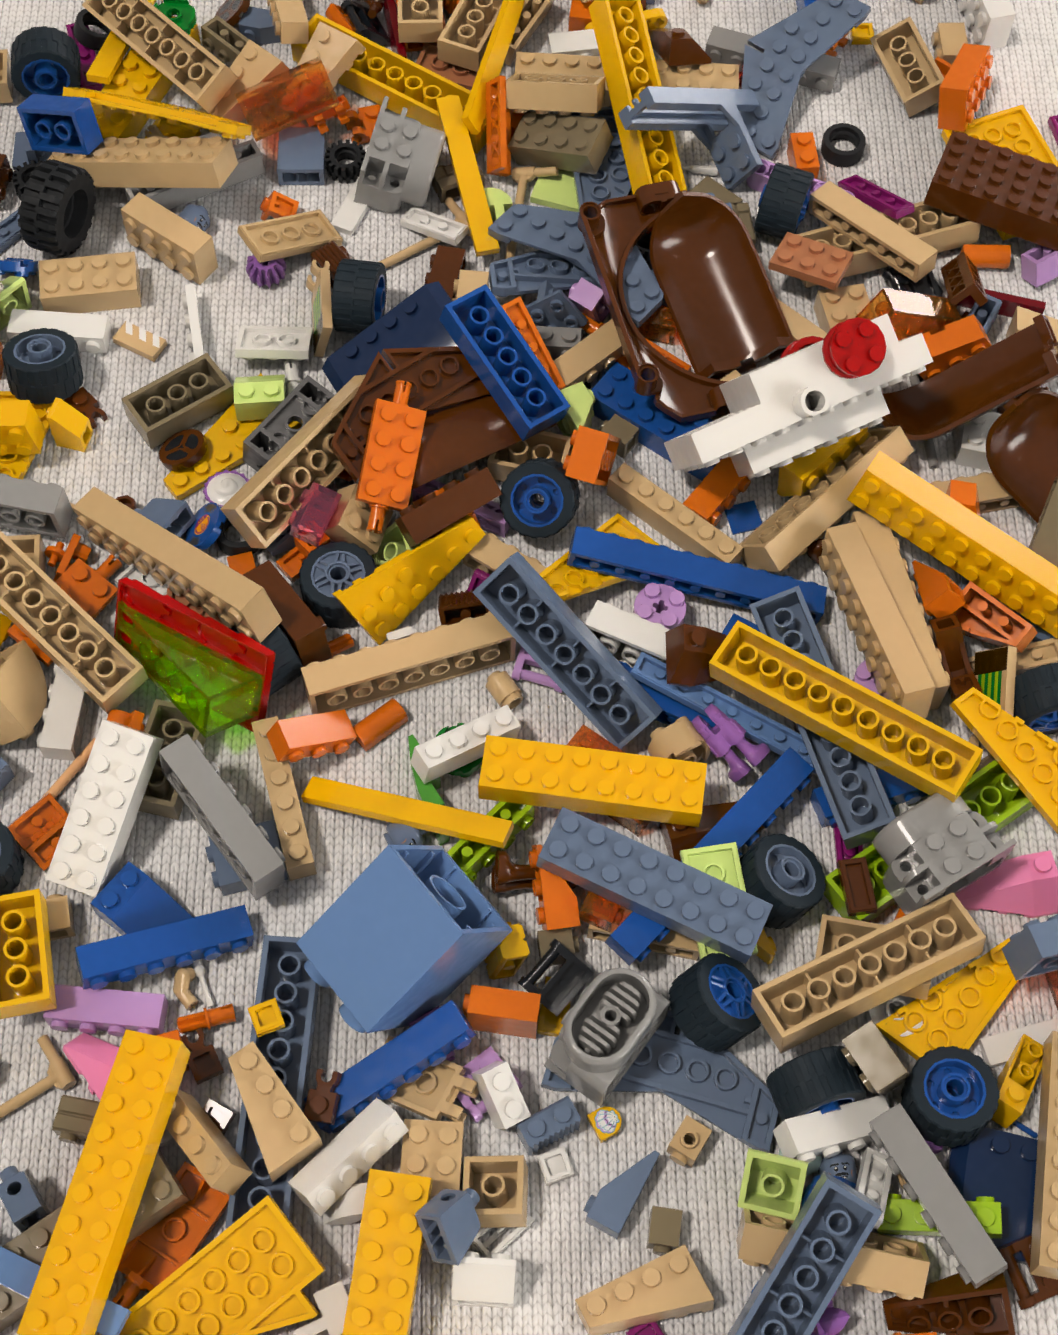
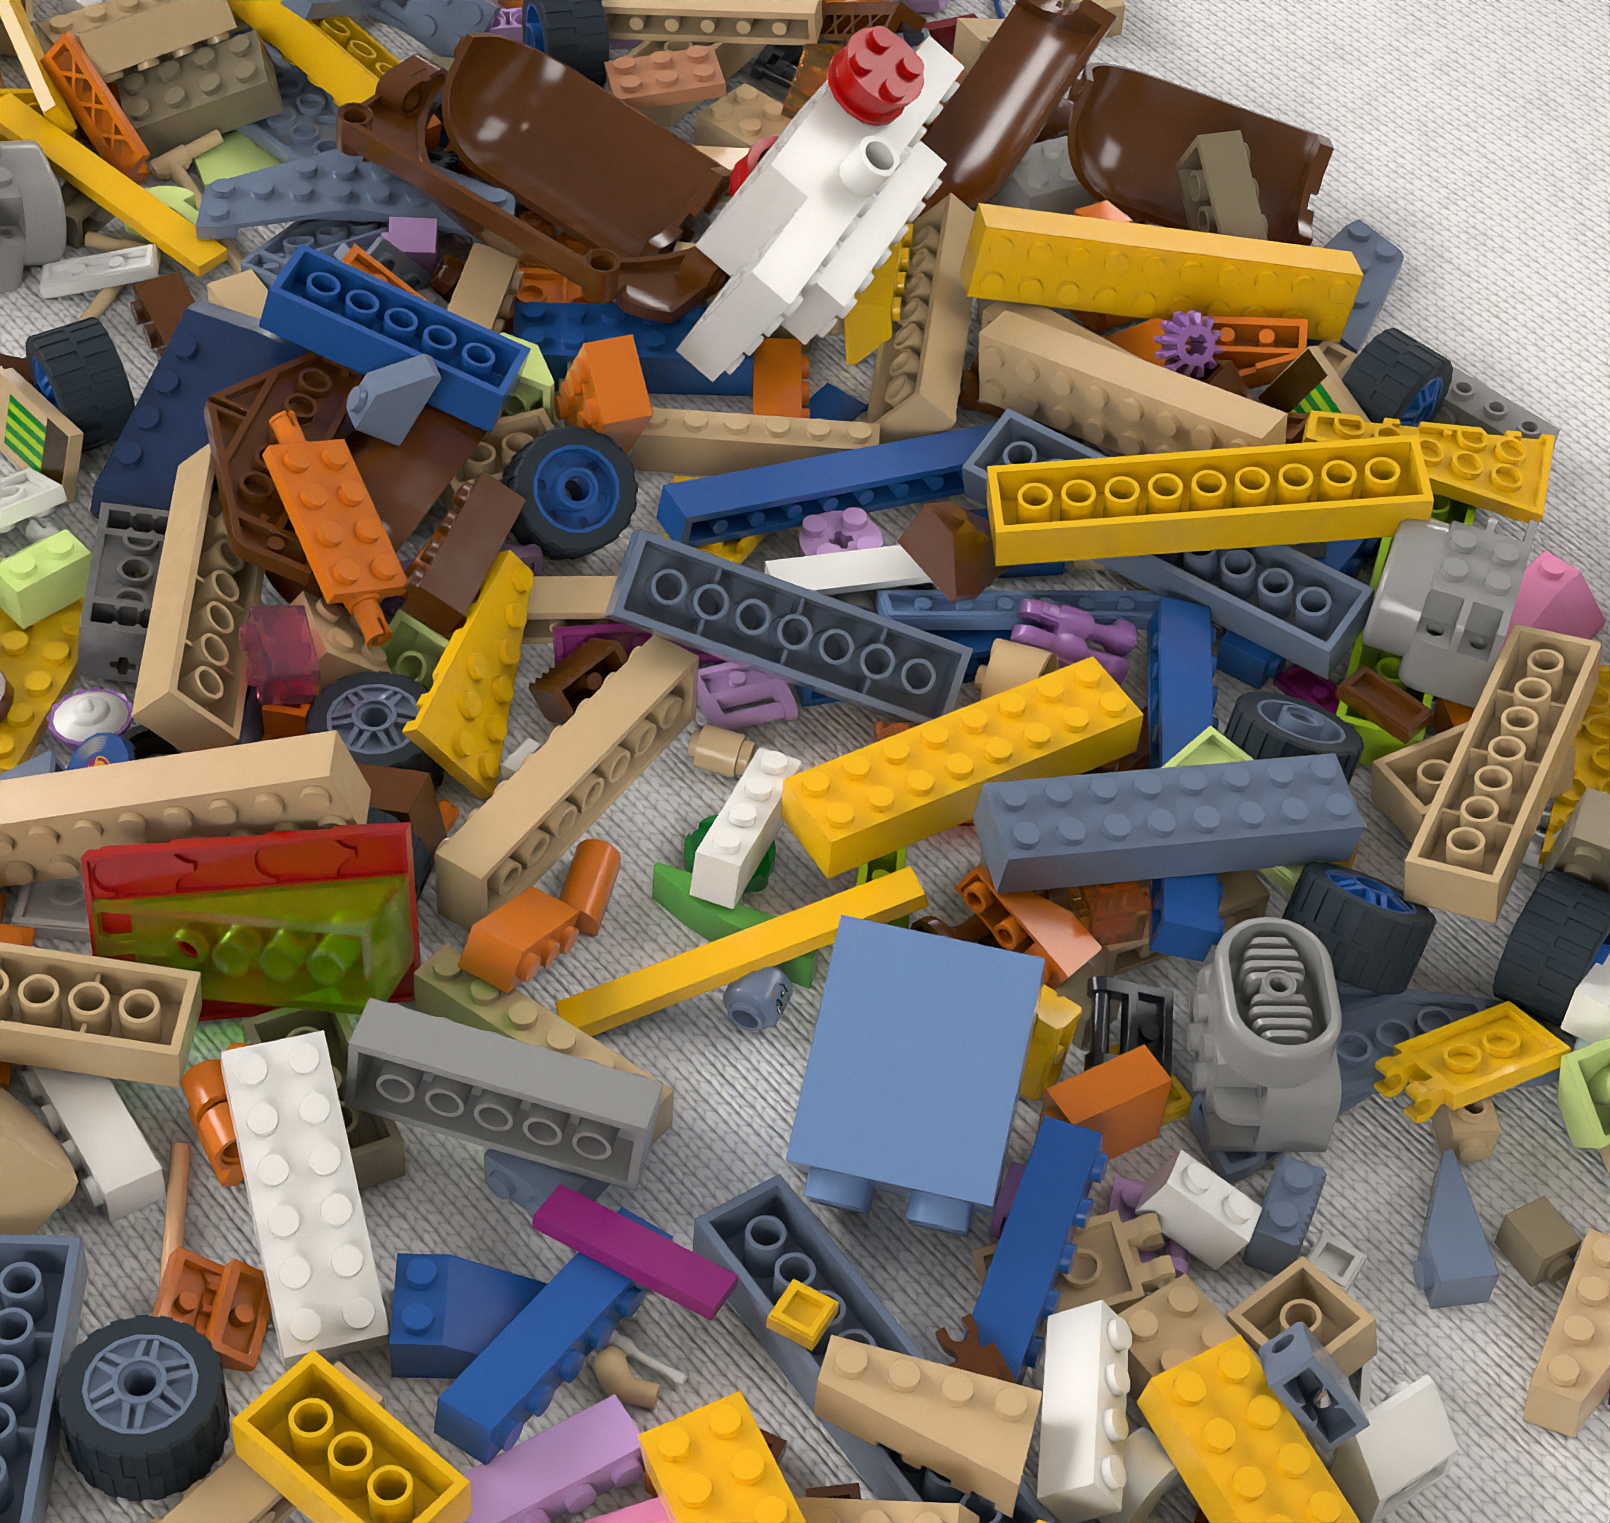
camera: 40 degrees left, 15 degrees down
(207, 1018) = (703, 1388): orange axle -> none
(225, 933) = (635, 1251): none -> magenta tile
(471, 399) = (393, 398): none -> sand blue slope
(590, 326) = (446, 274): none -> reddish brown tile
(605, 1122) = (1346, 1172): tile -> none
(713, 1113) = (1469, 1060): none -> yellow tile
(936, 610) = (1201, 343): none -> medium lavender gear

